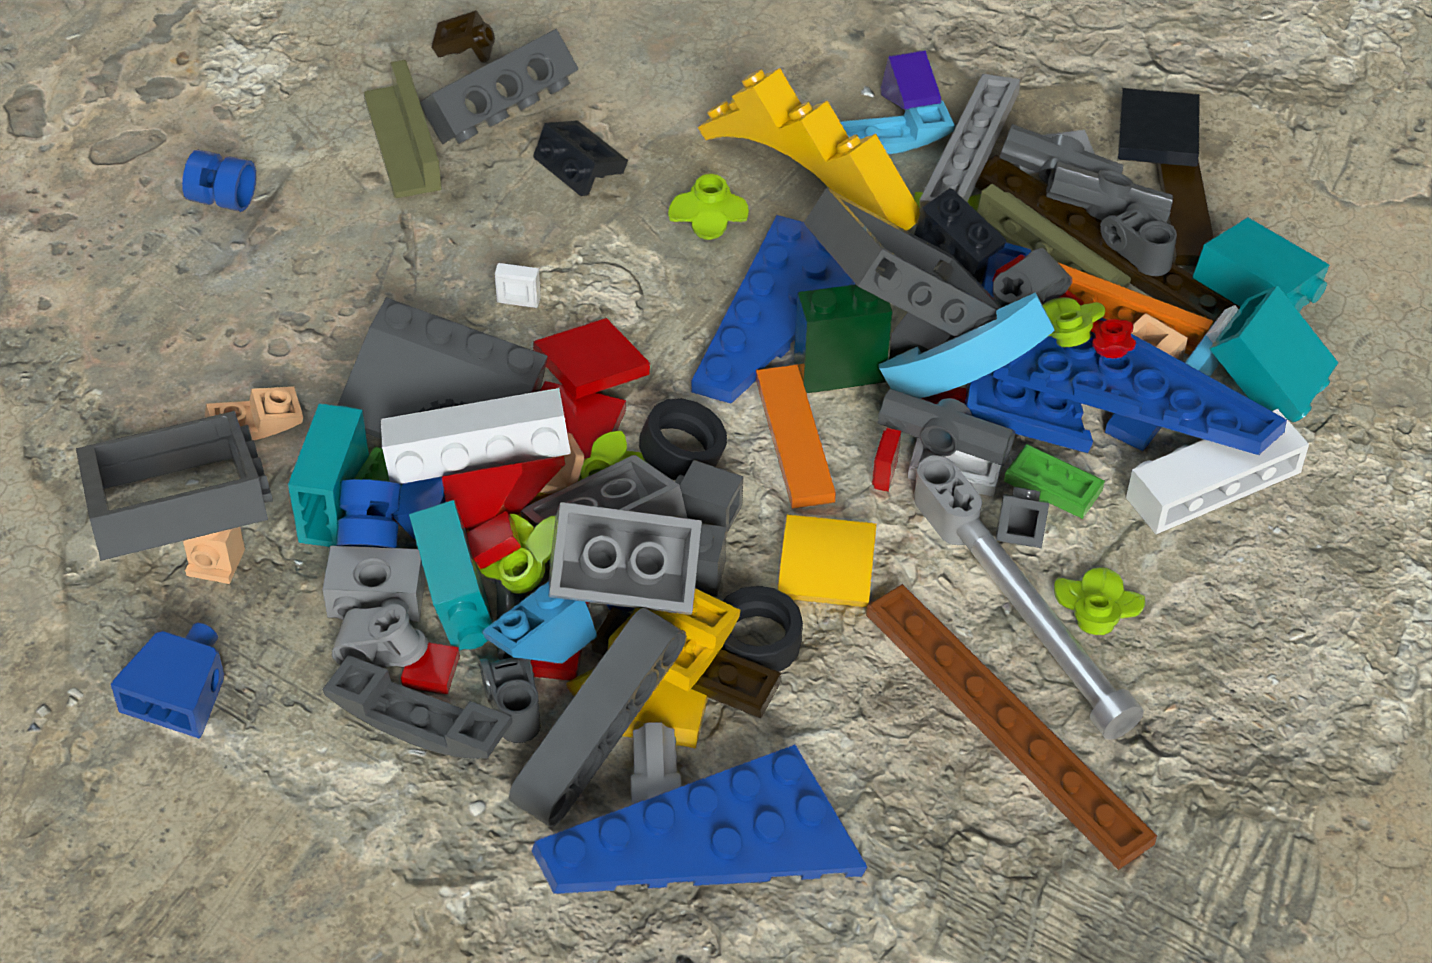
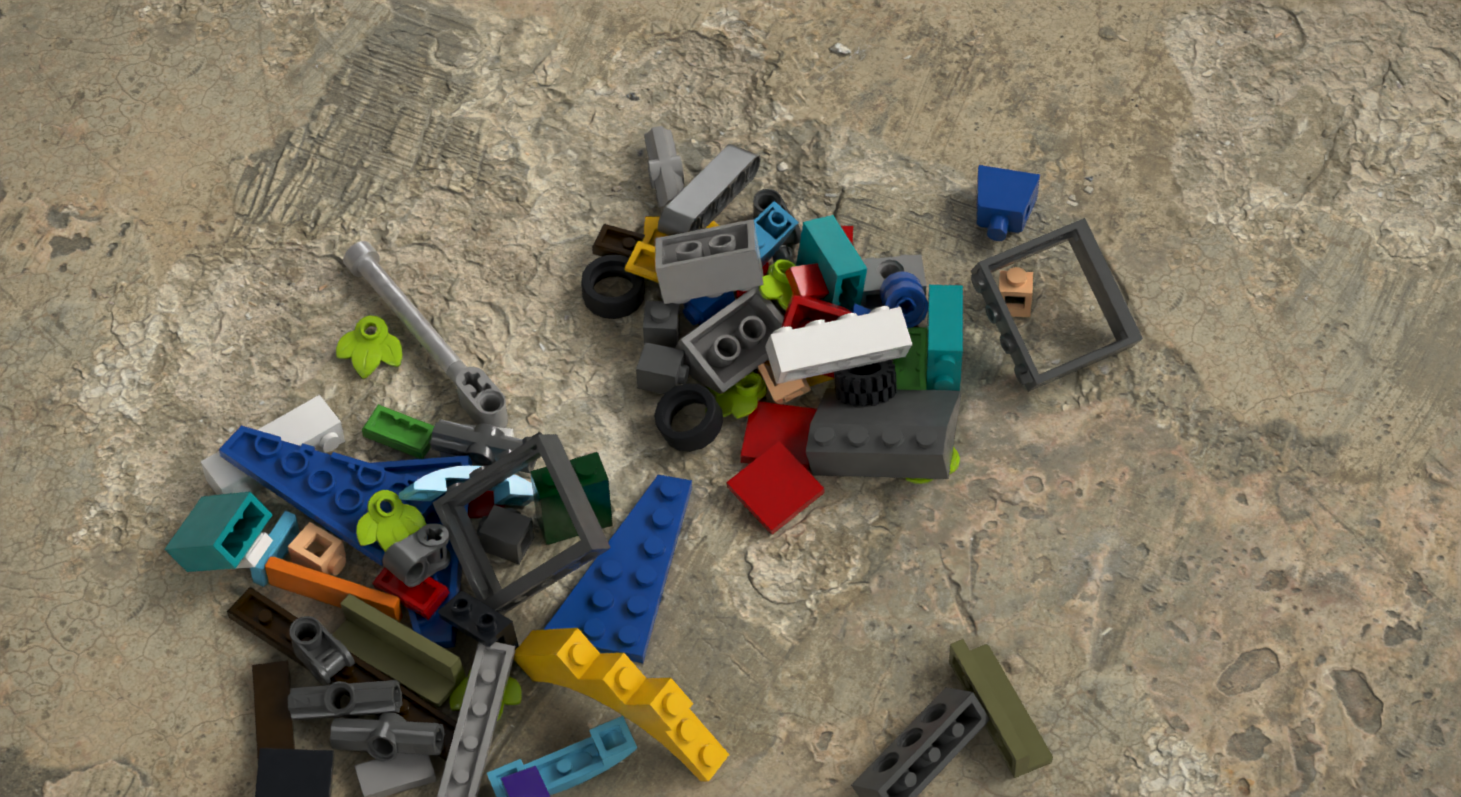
camera: 175 degrees right, 5 degrees up
(212, 179) = (1139, 612): blue wheel -> none
(266, 412) = (1028, 412): light nougat slope -> none
(379, 637) = (876, 237): light grey piece -> none
(413, 716) = (815, 201): dark grey slope -> none
(517, 285) = (851, 546): white tile -> none
(577, 155) = (828, 699): black bracket -> none
(708, 207) = (704, 659): lime plate -> none
(719, 830) = (609, 148): blue wing -> none
(795, 437) = (600, 436): orange tile -> none
(827, 560) = (569, 348): yellow slope -> none
(886, 459) = (530, 421): red tile -> none
(1012, 727) = (439, 259): dark orange tile -> none
(1022, 518) = (425, 379): dark grey brick -> none
(1113, 338) = (350, 515): red plate -> none
(1256, 259) = (216, 637): teal brick -> none

